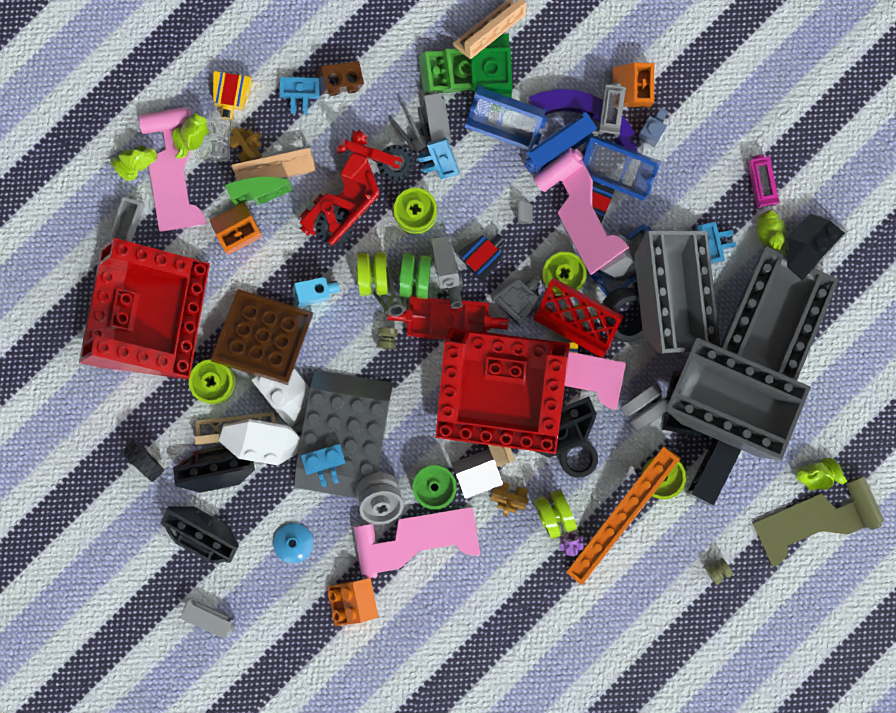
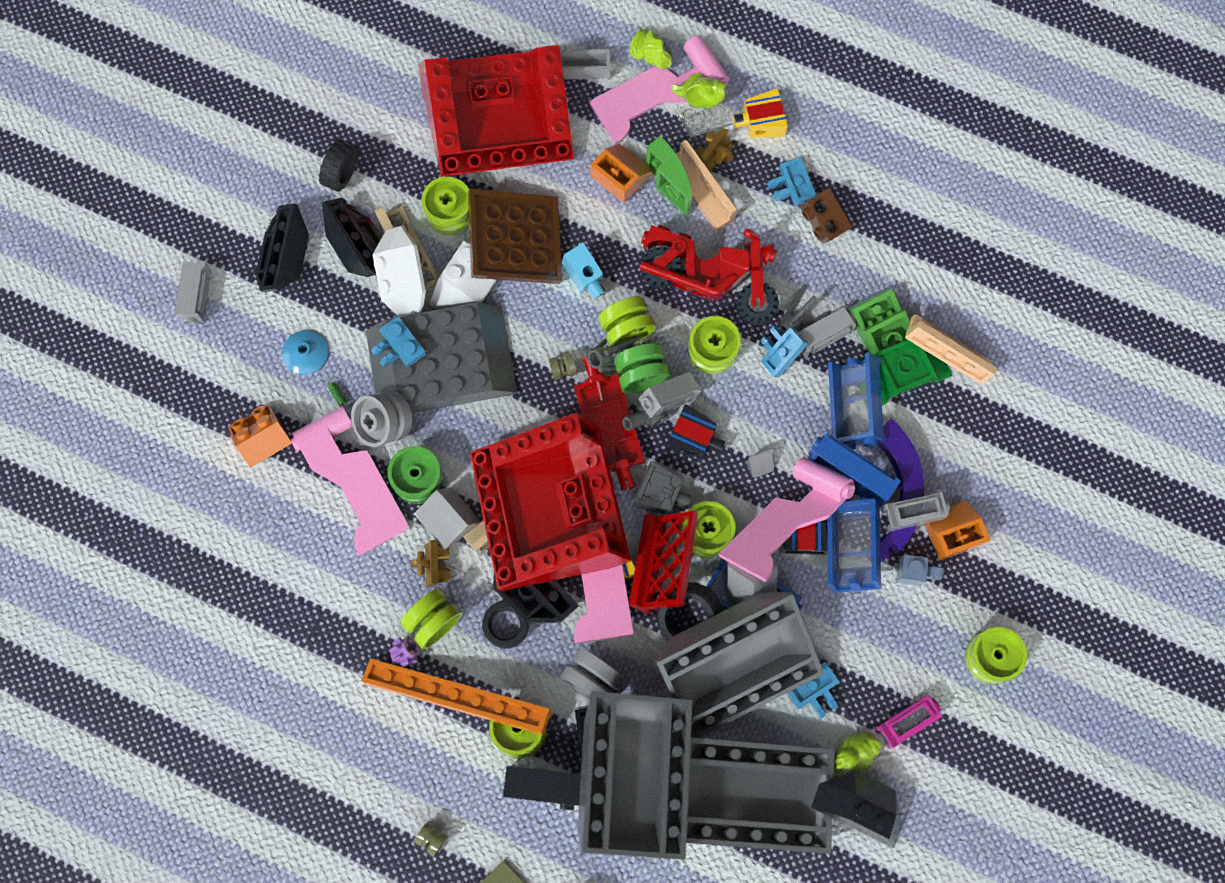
camera: 70 degrees right, 10 degrees down
(339, 528) = (338, 396): none -> bright green piece
(751, 97) = (1000, 642): none -> lime wheel

